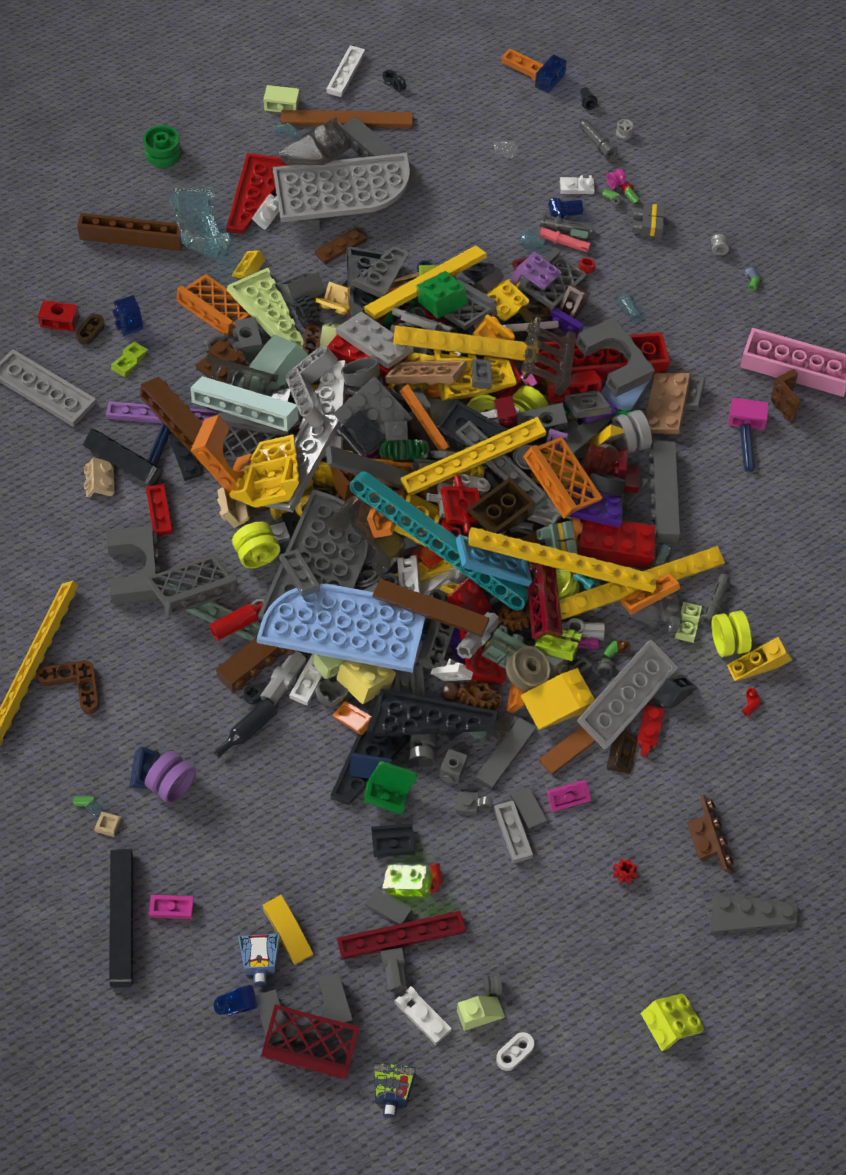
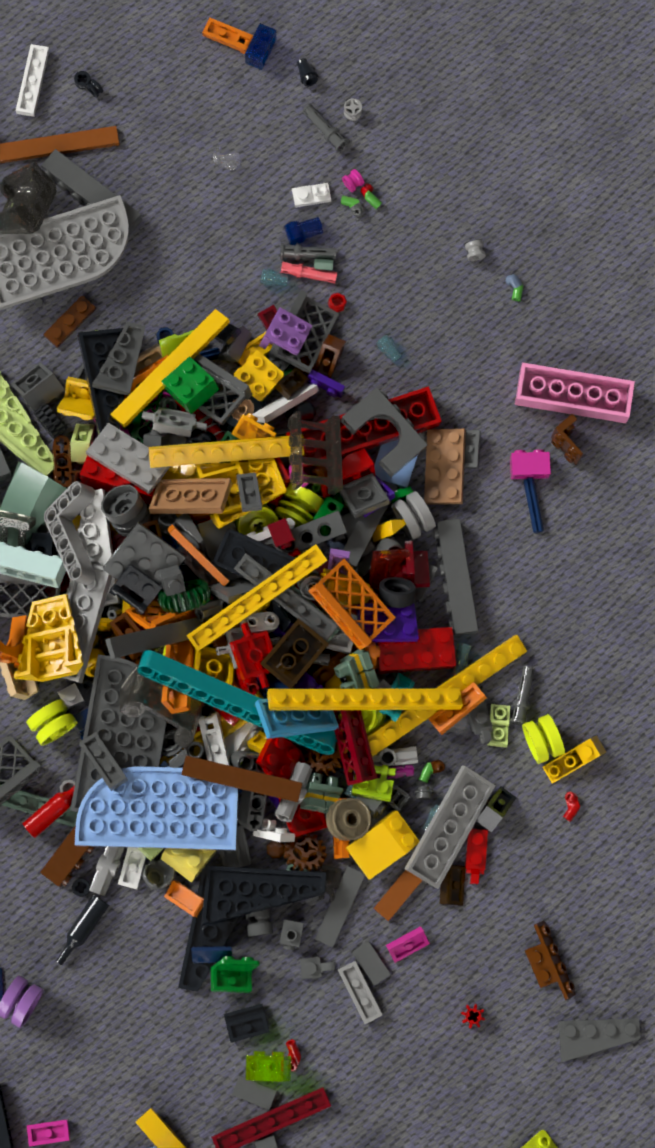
camera: 10 degrees left, 20 degrees up
(652, 220) = (398, 230): dark grey hips -> none

